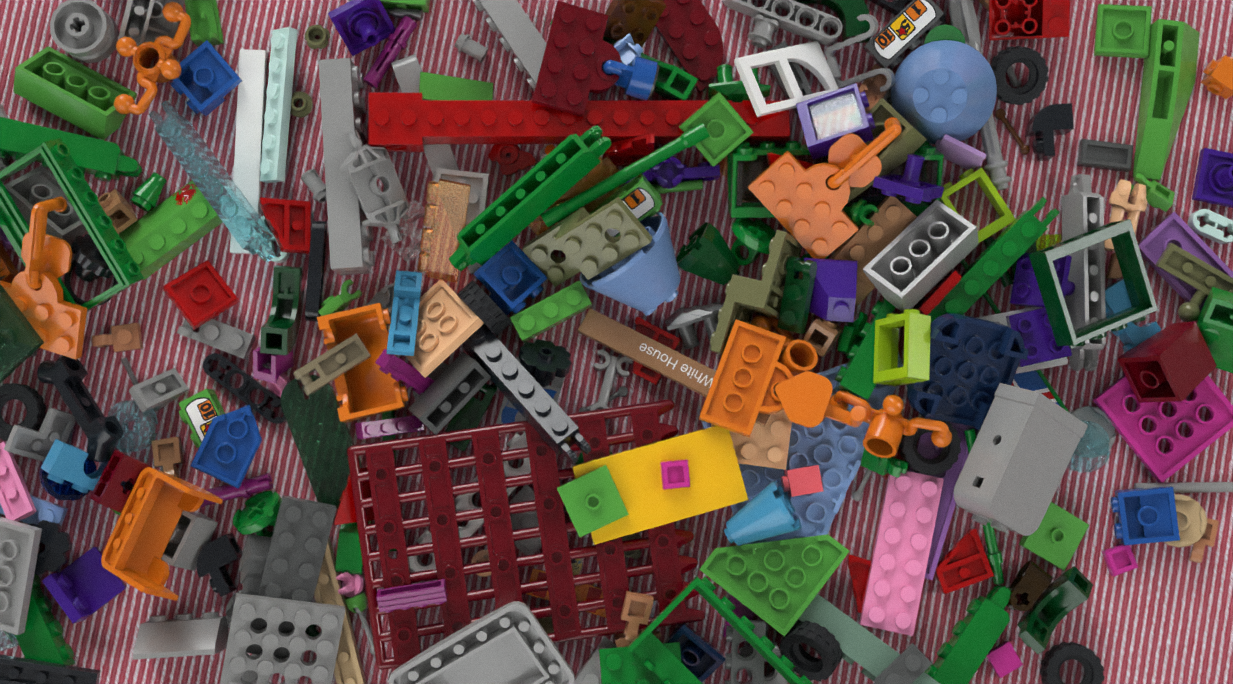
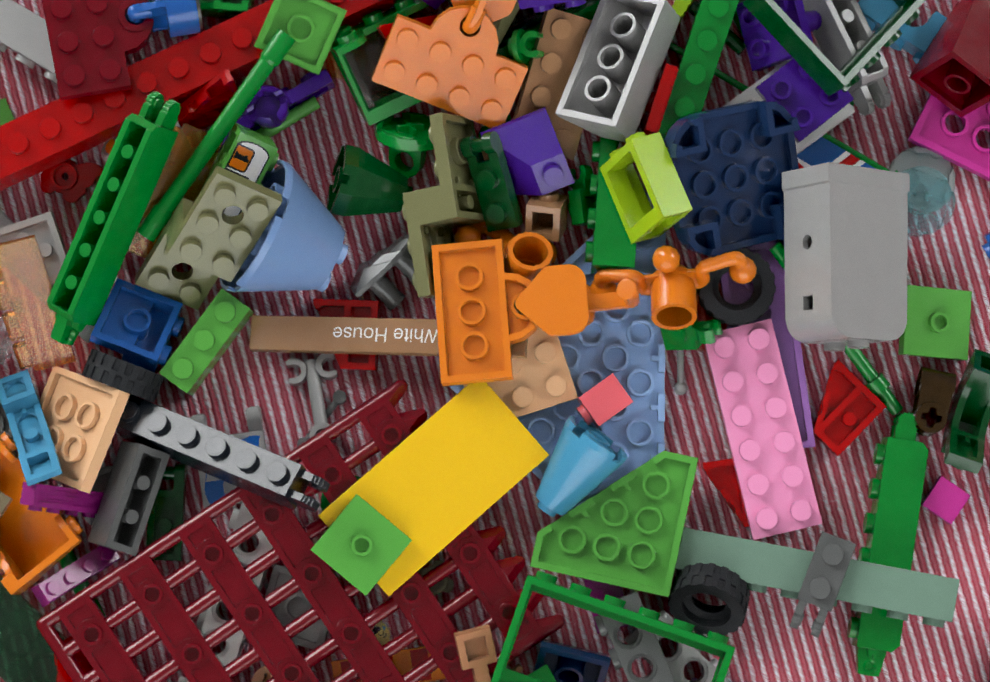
camera: 25 degrees left, 0 degrees up
(545, 361) = (226, 405): black plant -> none
(675, 474) = (445, 465): dark pink tile -> none

